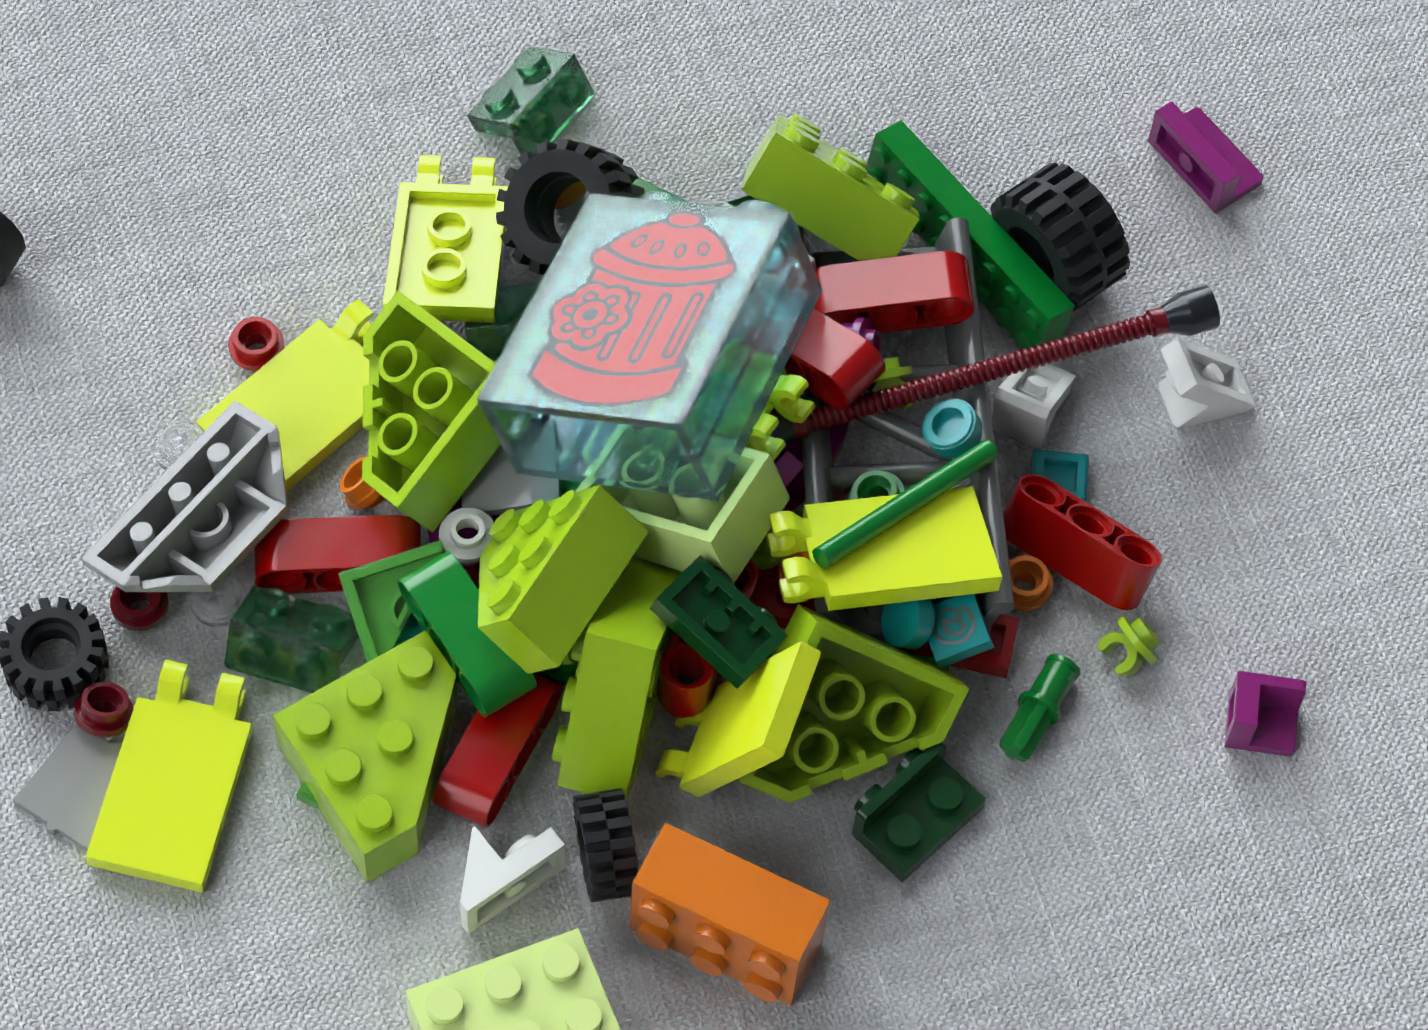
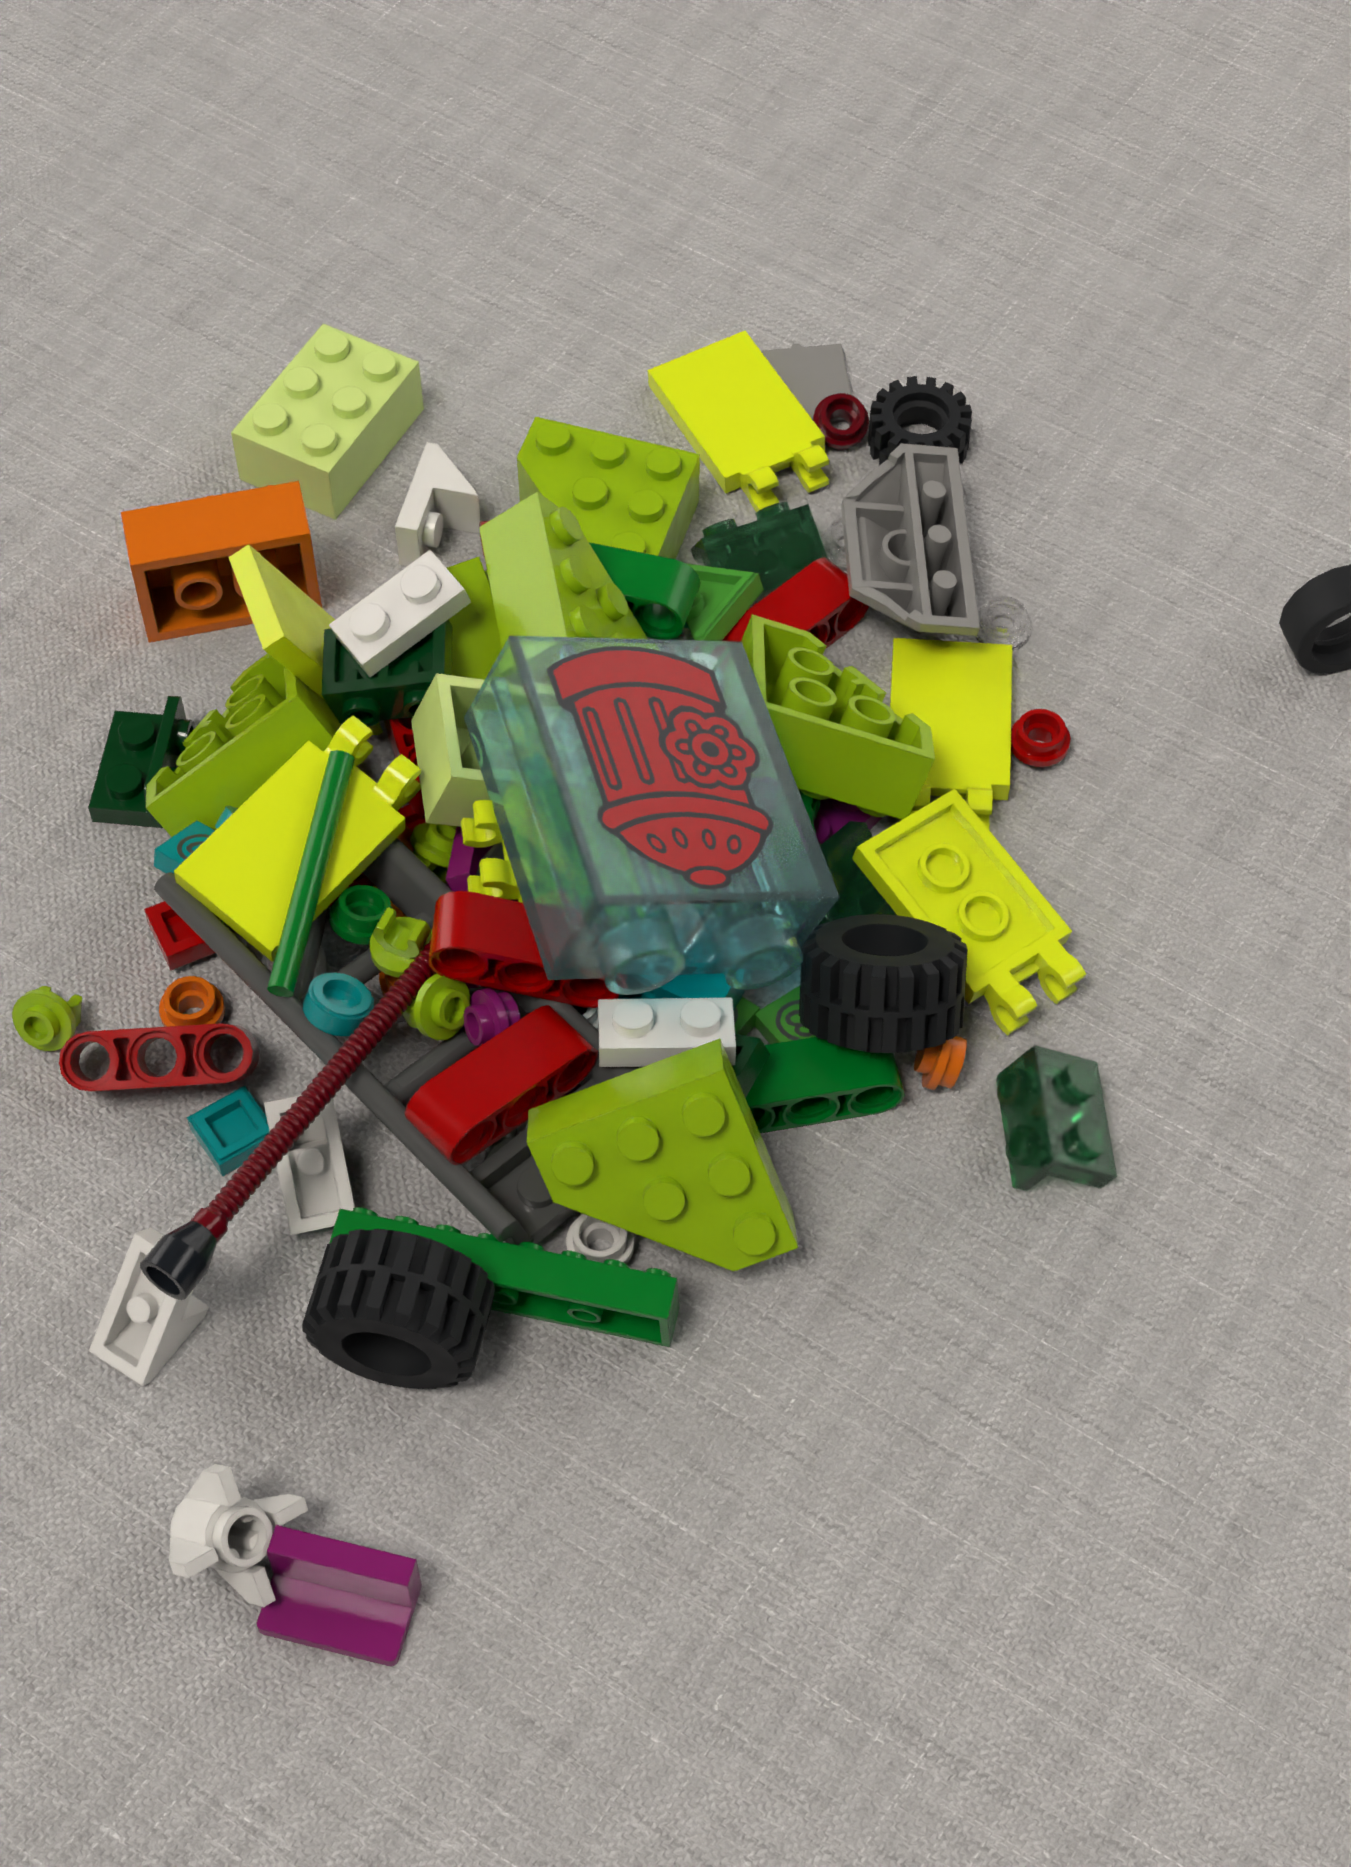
camera: 145 degrees right, 5 degrees down
(605, 844) = (360, 546): black tyre -> none
(690, 621) = (400, 613): none -> white plate
(872, 442) = (397, 942): none -> lime plate
(1039, 707) = (97, 913): green axle -> none
(1254, 212) = (228, 1532): none -> white brick

